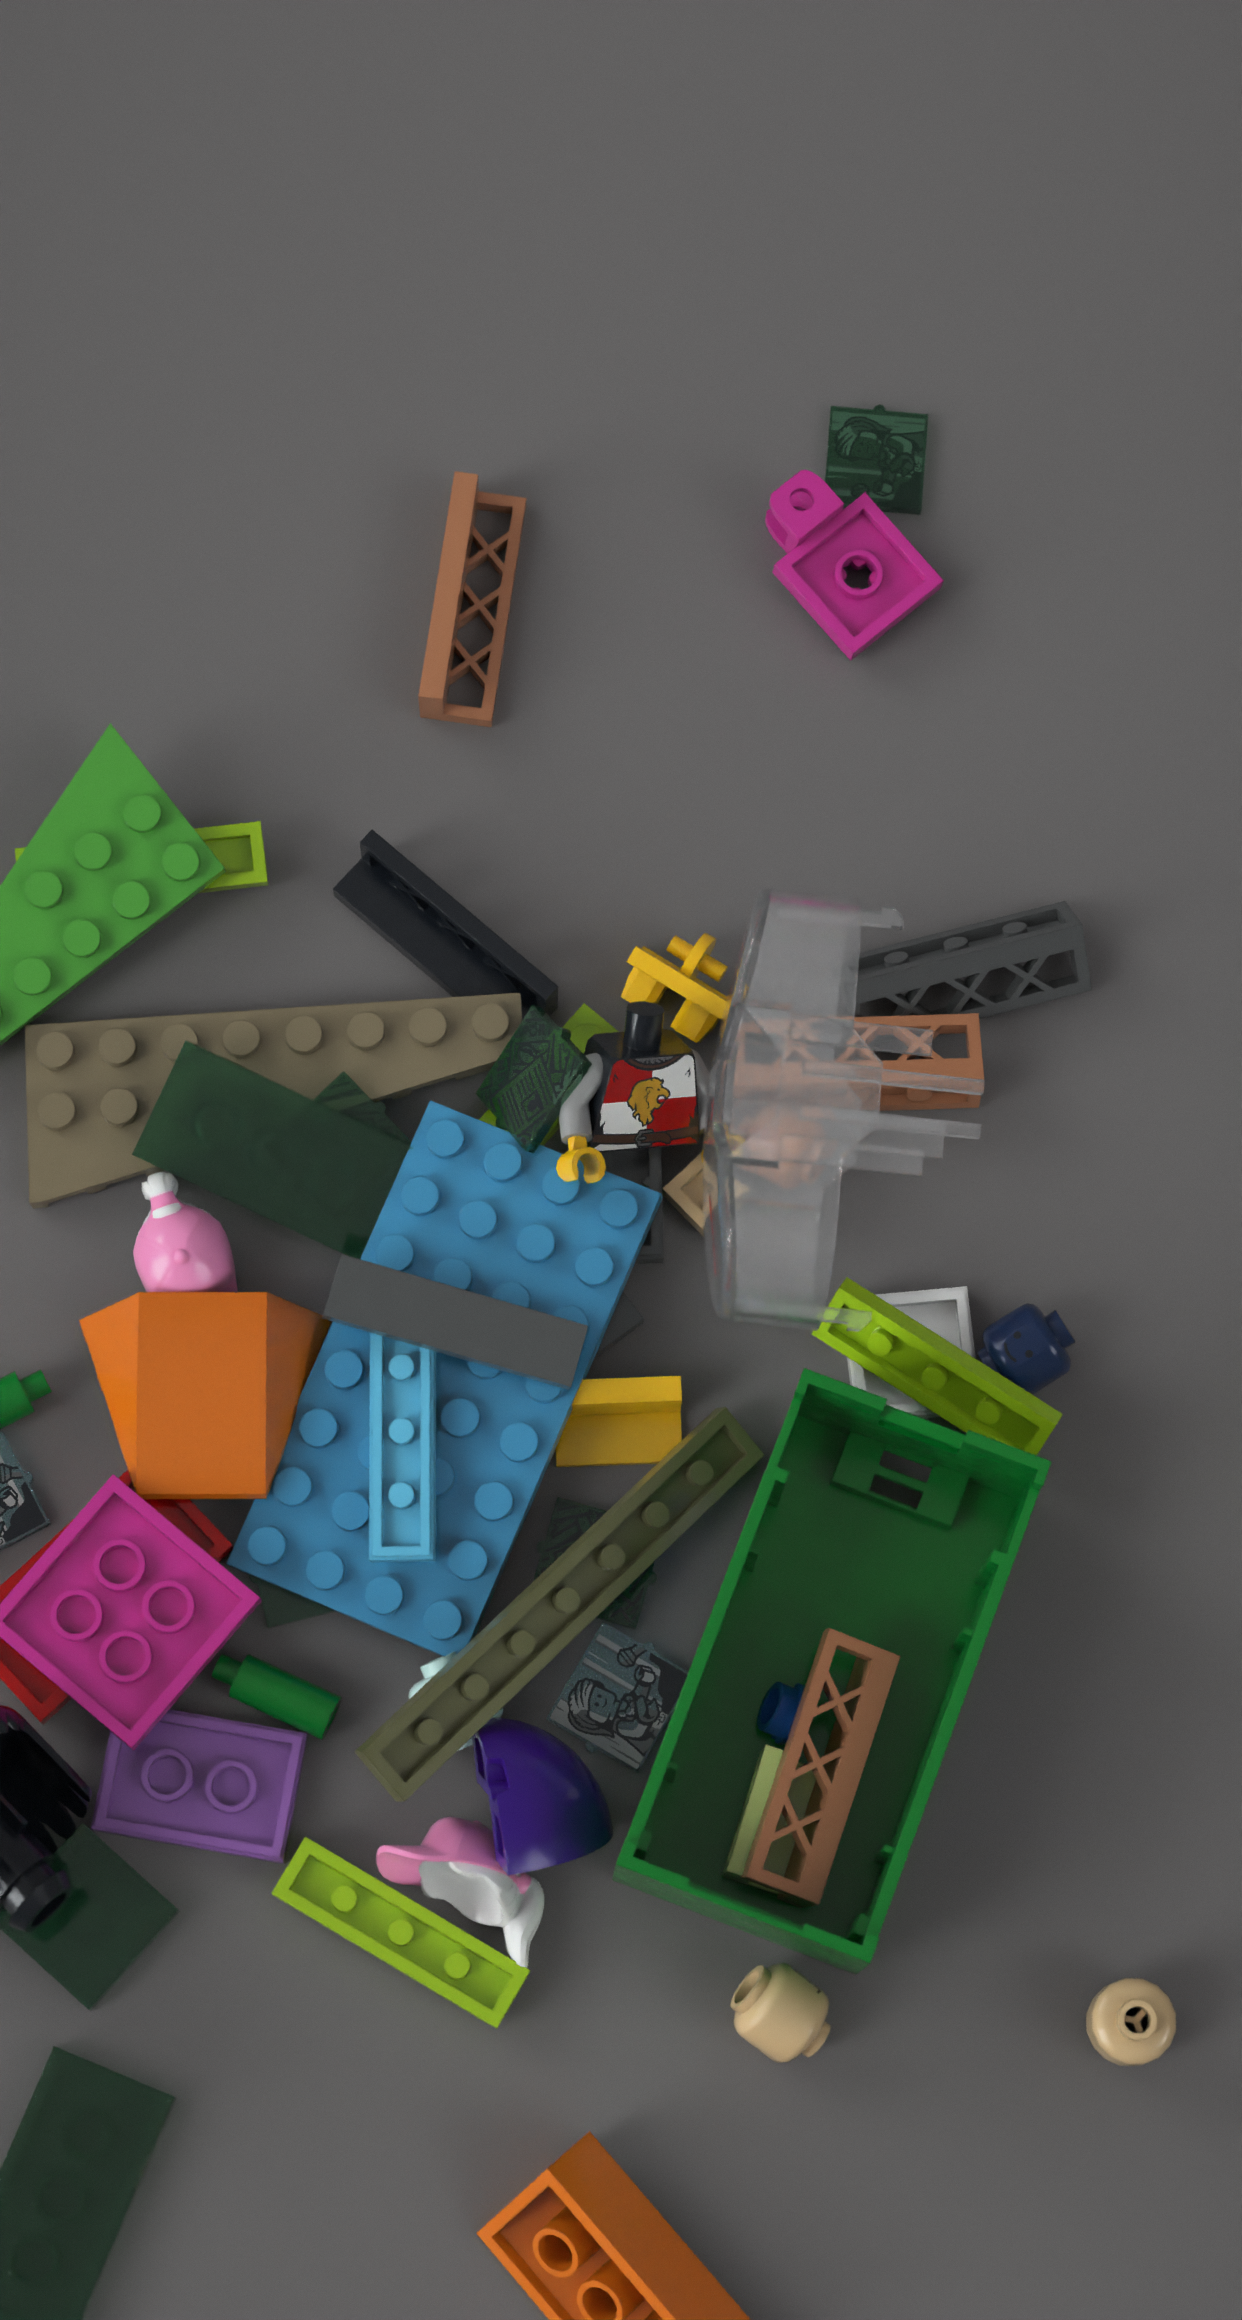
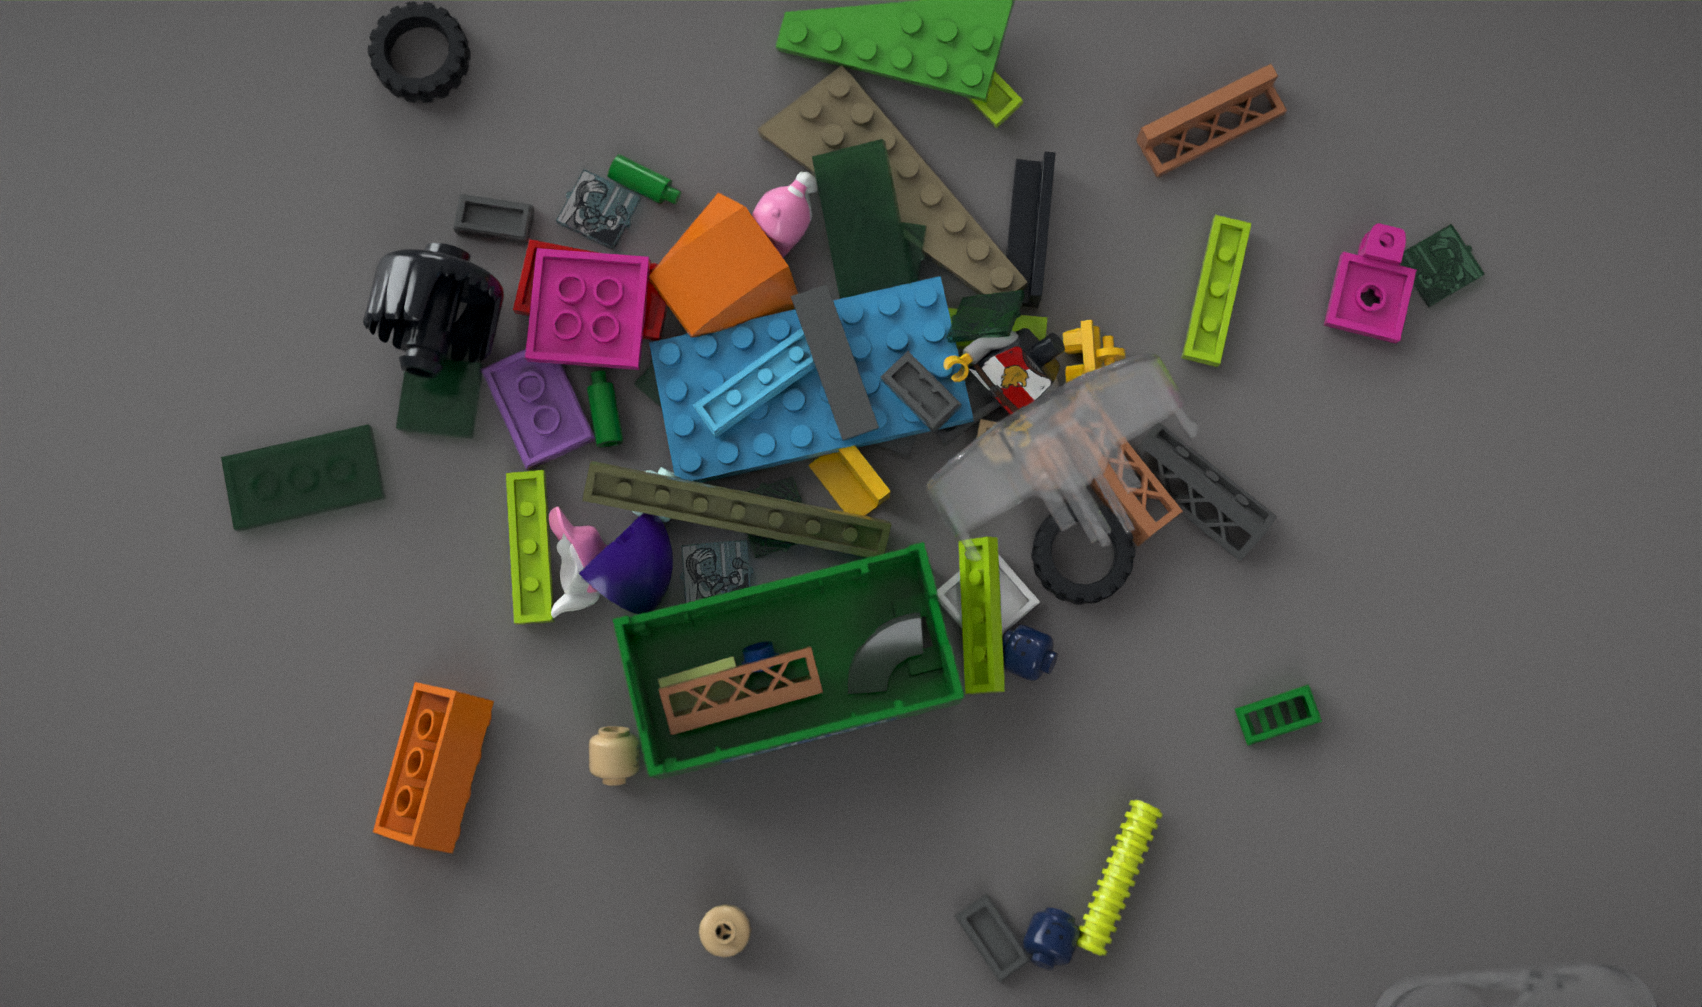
camera: 60 degrees right, 5 degrees up
(580, 1235) = (921, 392): none -> dark grey plate
(707, 761) = (1216, 291): none -> lime plate
(899, 1539) = (883, 652): none -> dark grey tile
(972, 1241) = (1083, 593): none -> black tyre

